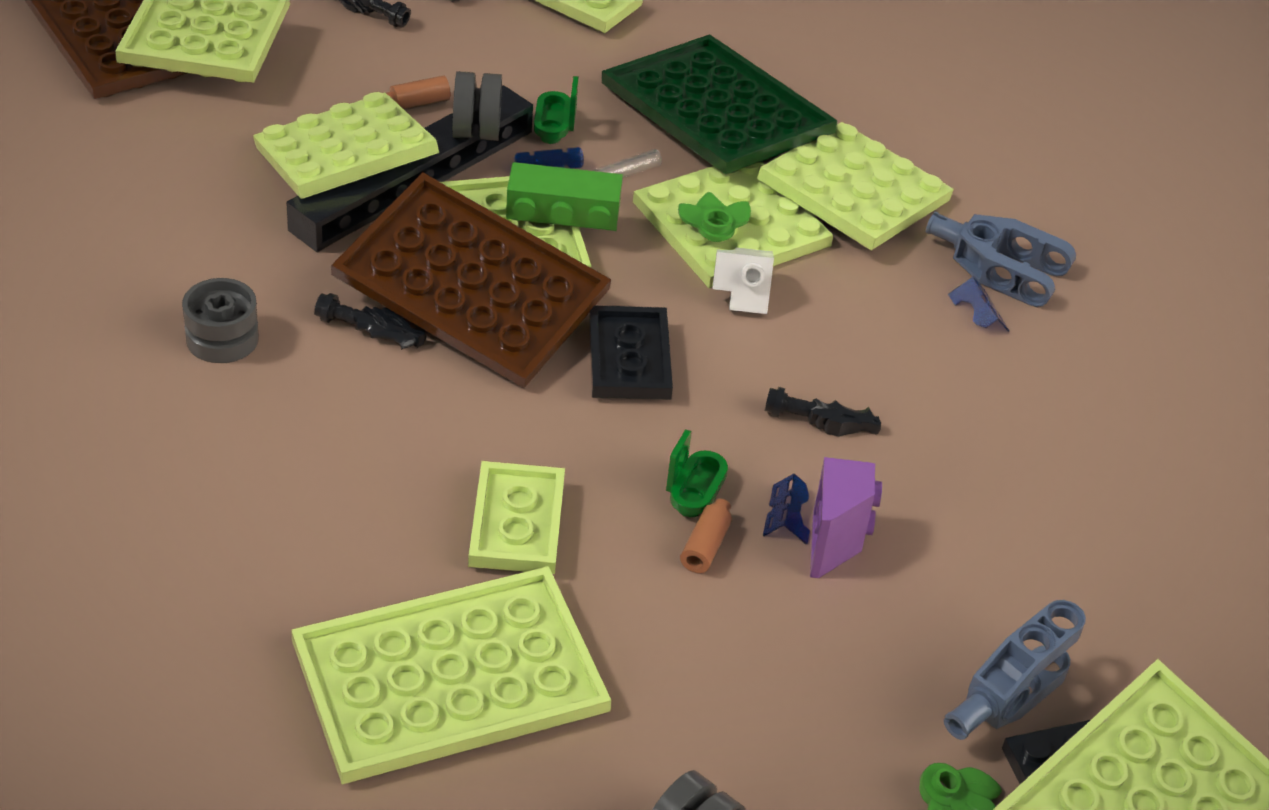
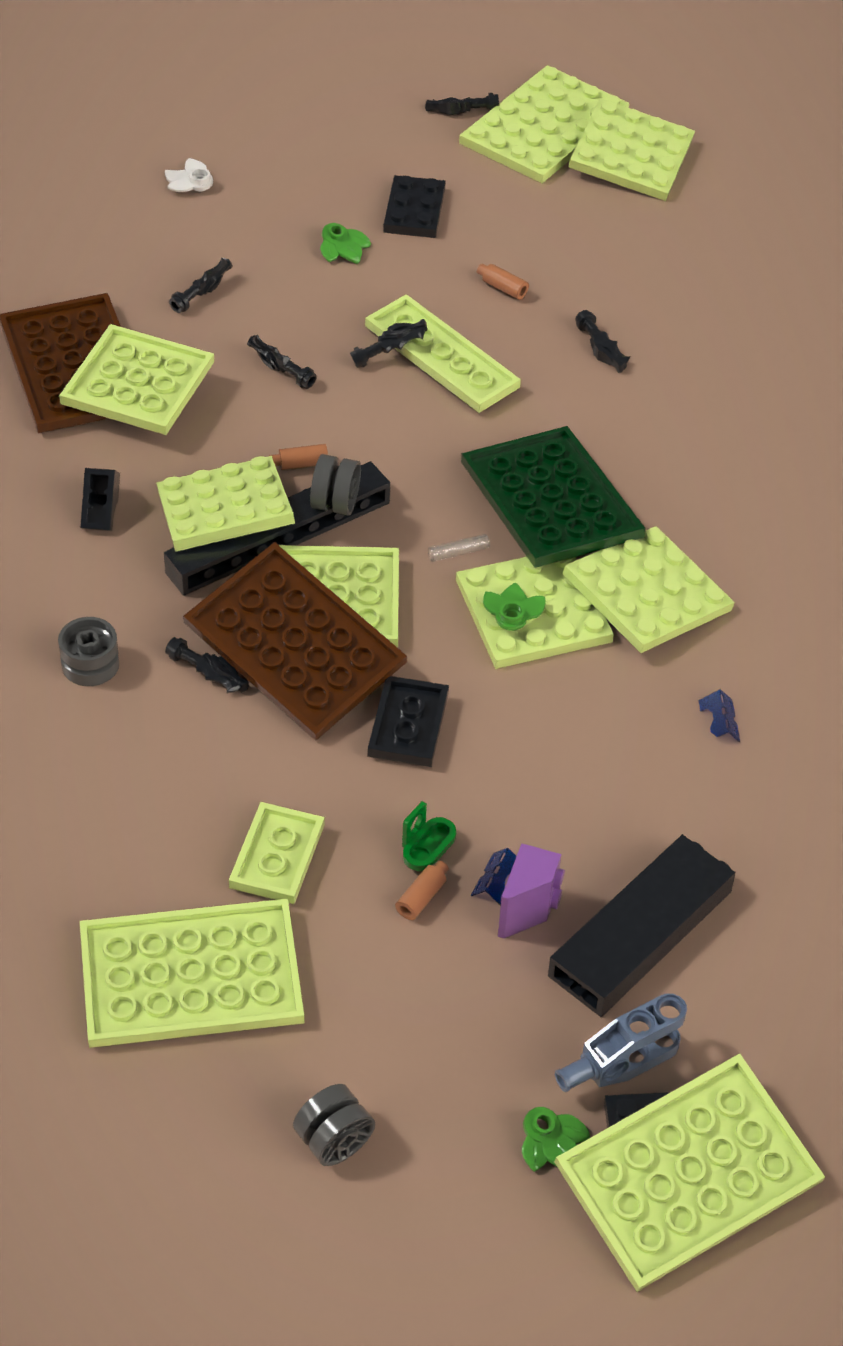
camera: 15 degrees right, 5 degrees up
(190, 155) = (99, 498): none -> black arch
(555, 157) = (394, 533): clear blue axle -> none
(556, 114) = (411, 490): green bracket -> none
(564, 196) = (390, 574): bright green brick -> none
(747, 276) = (523, 664): white brick -> none
(832, 417) = (558, 801): black piece -> none
(976, 540) = (641, 925): none -> black brick
(985, 237) = (743, 652): sand blue piece -> none

